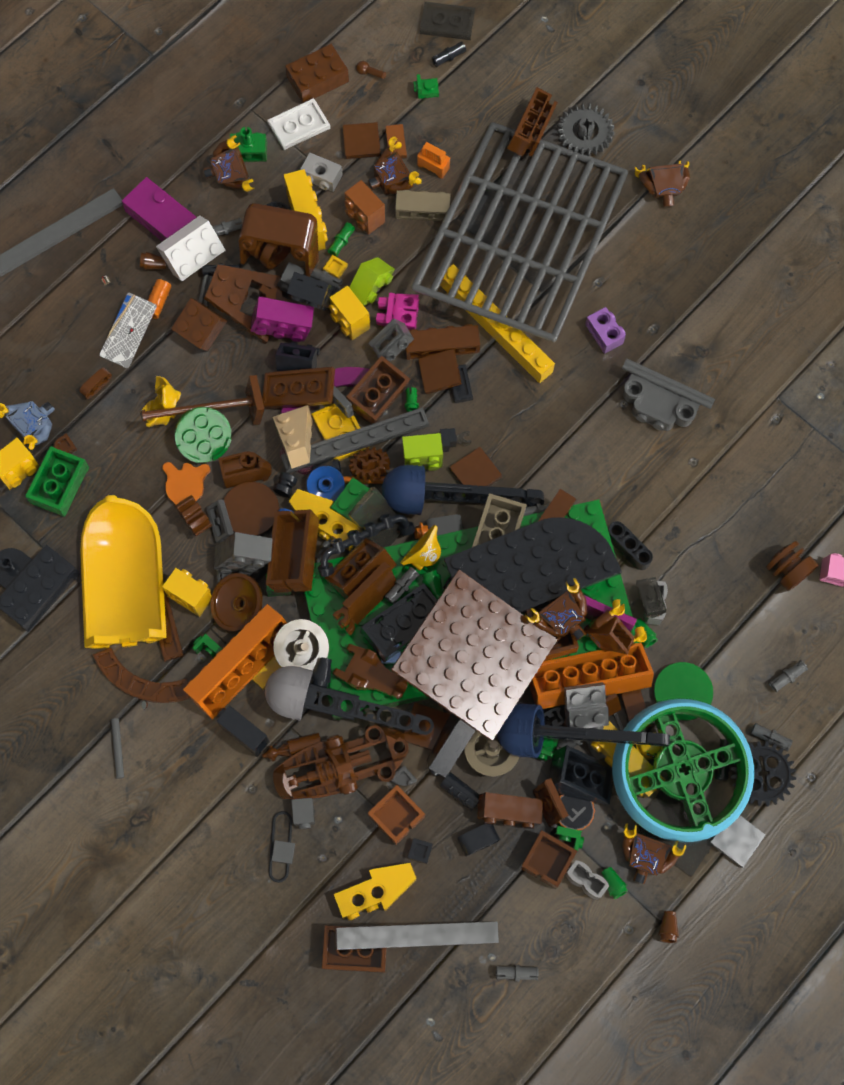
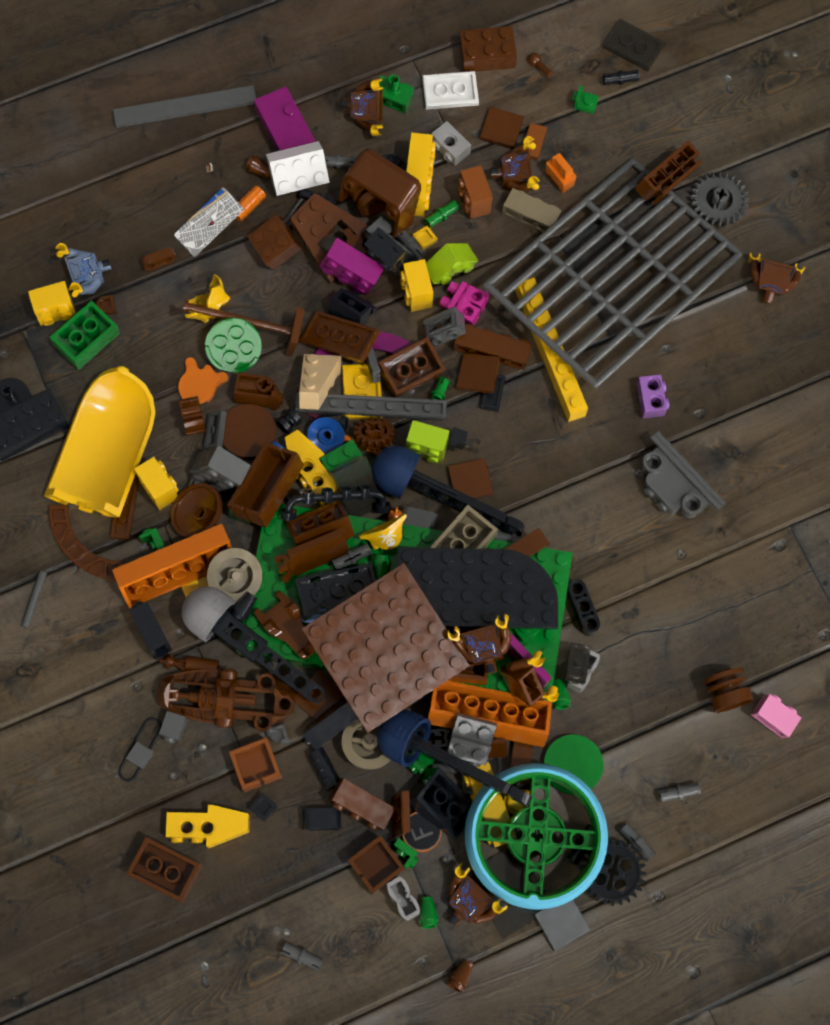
camera: 20 degrees right, 0 degrees up
(416, 935) = (224, 881): tile -> none

